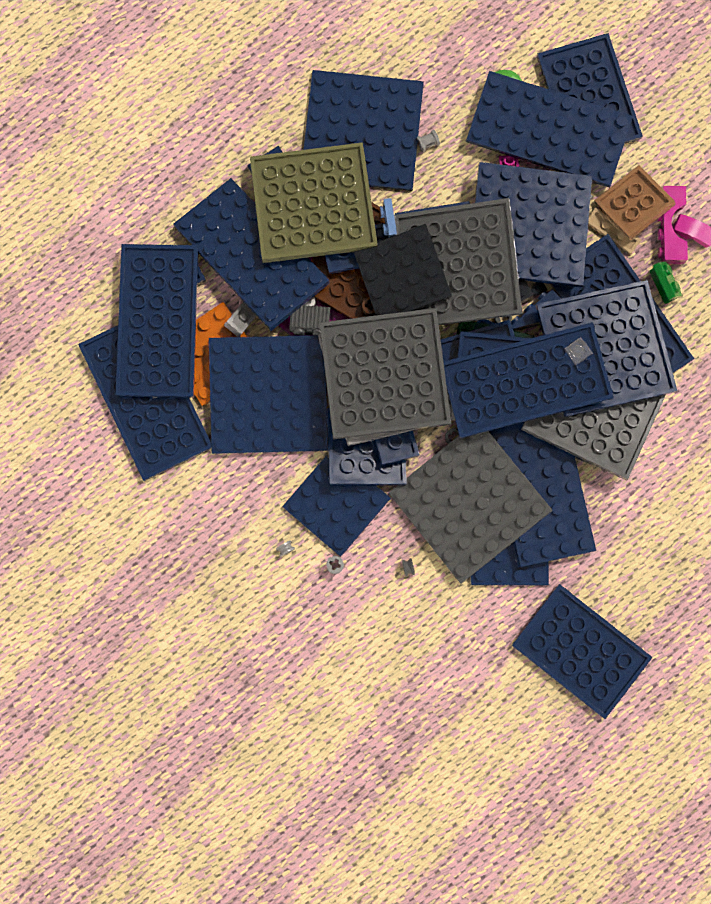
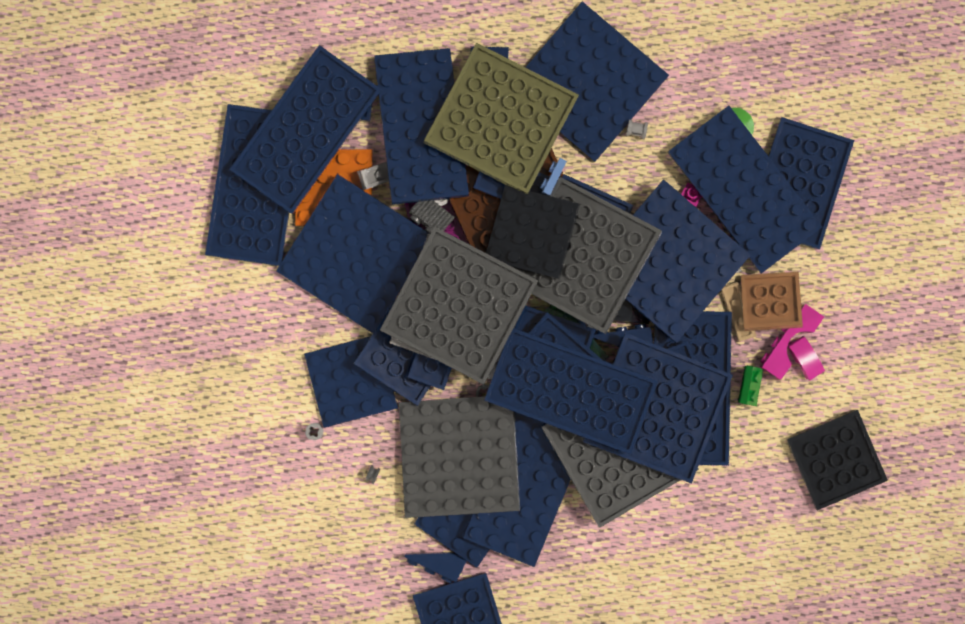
camera: 35 degrees right, 5 degrees up
(285, 548) = (283, 390): light grey bush -> none
(518, 600) = (443, 563): none -> dark blue slope
(578, 351) = (628, 396): clear plate -> none

